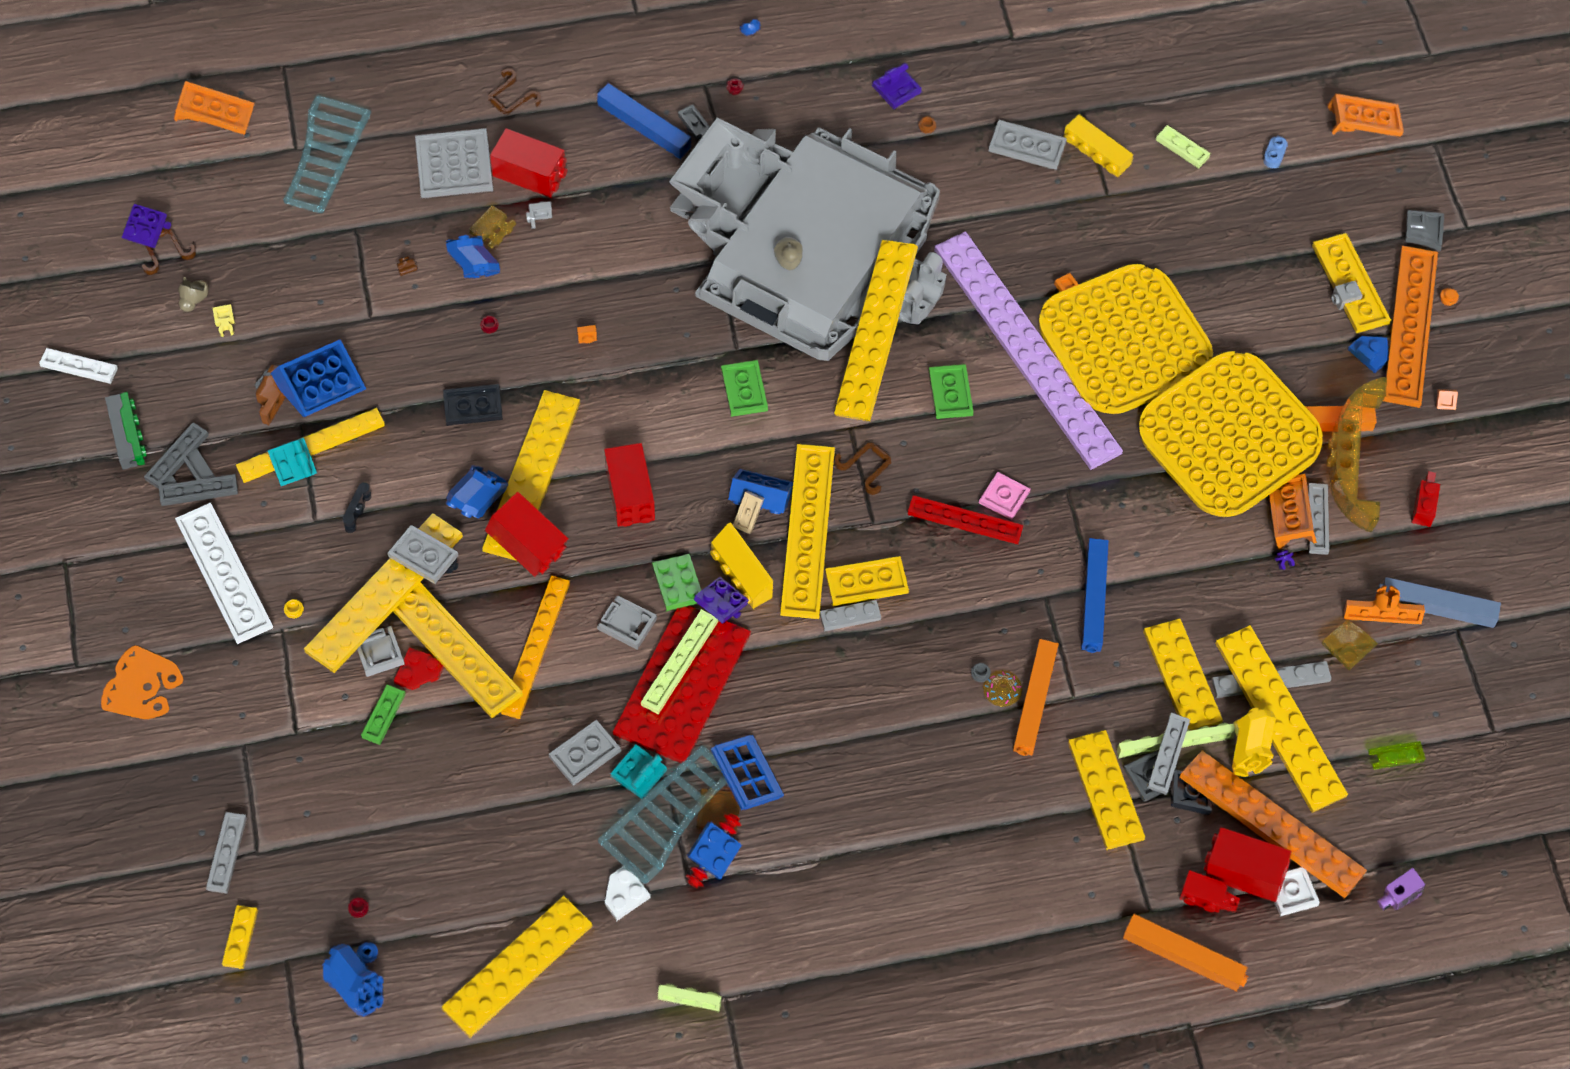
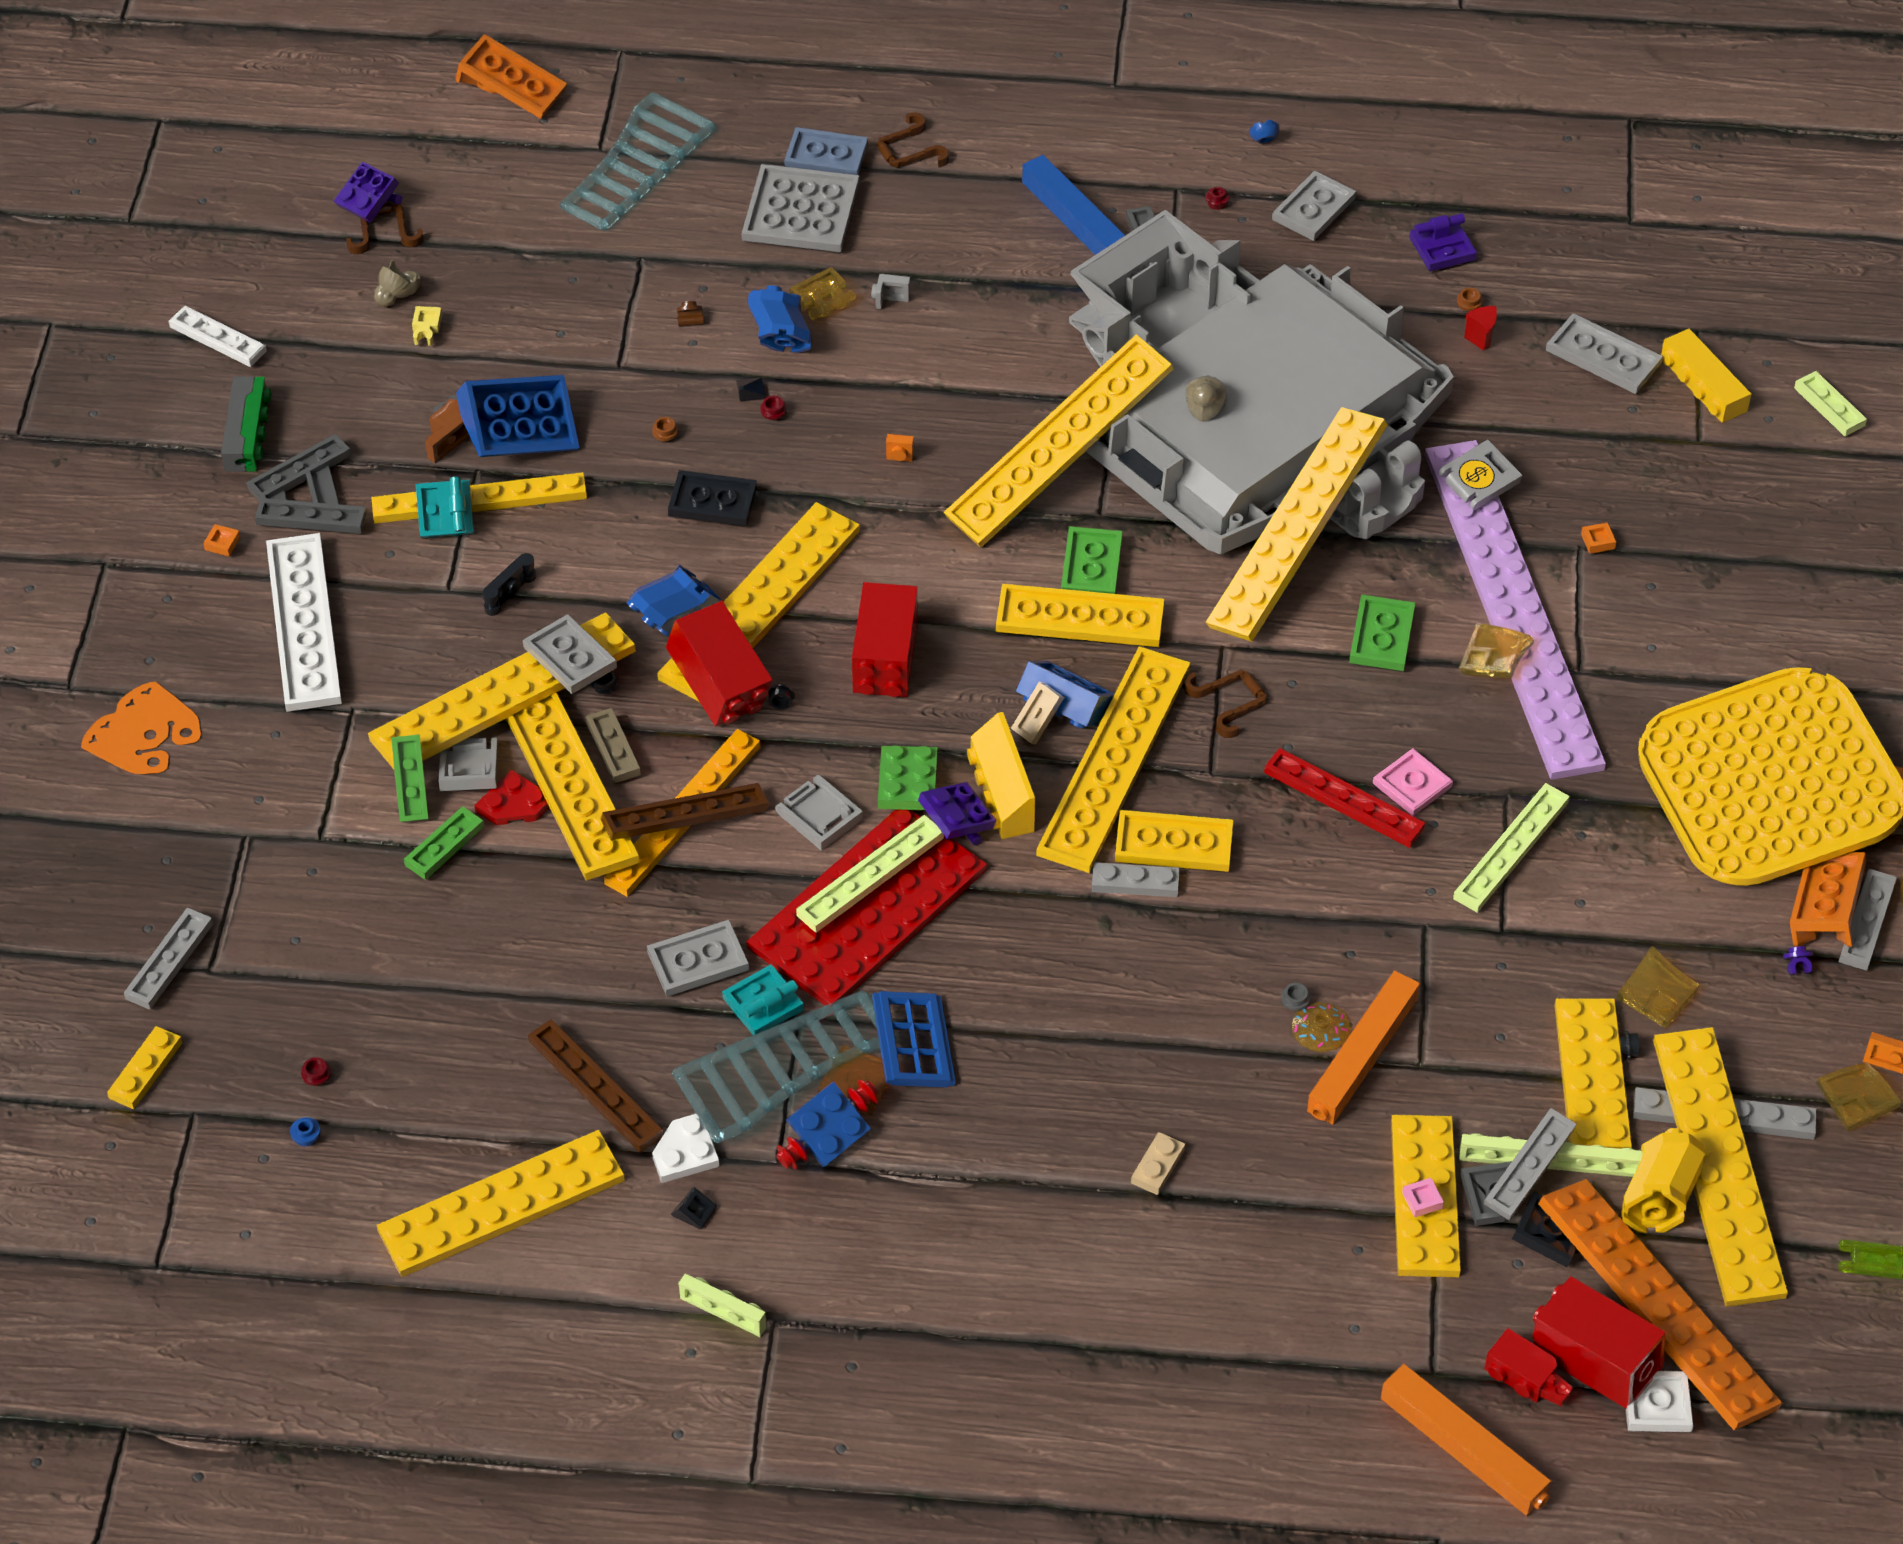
camera: 20 degrees right, 10 degrees down
(142, 525) = (222, 540): none -> orange plate
(293, 609) = (377, 686): yellow plate -> none
(345, 675) = (409, 778): none -> bright green plate
(353, 980) = (269, 1155): blue brick -> none
(420, 360) = (665, 429): none -> dark orange plate
(456, 115) = (826, 151): none -> sand blue plate
(468, 313) = (750, 389): none -> black slope
(471, 610) = (613, 745): none -> dark tan plate
(528, 163) = (898, 225): red brick -> none
(540, 649) = (684, 811): none -> reddish brown plate
(550, 864) = (595, 1085): none -> reddish brown plate
(573, 543) = (780, 696): none -> black plate
(646, 934) = (694, 1208): none -> black slope
(697, 307) = (1058, 441): none -> yellow plate
(750, 430) = (1080, 615): none -> yellow plate
(802, 77) = (1314, 205): none -> light grey plate
(932, 815) = (1158, 1163): none -> tan plate
(943, 144) = (1480, 326): none -> red tile
(977, 261) = (1476, 476): none -> light grey container
(1028, 388) = (1494, 651): none -> clear yellow plate
(1082, 527) = (1511, 847): none -> yellowish green plate
(1094, 595) = (1497, 937): blue brick -> none
(1108, 795) = (1422, 1197): none -> bright pink plate
(1124, 337) = (1657, 620): yellow plate -> none
(1200, 648) = (1629, 1044): none -> black plate
(1204, 603) = (1657, 989): none -> clear yellow plate
(1409, 888) = (1825, 1442): medium lavender torso -> none

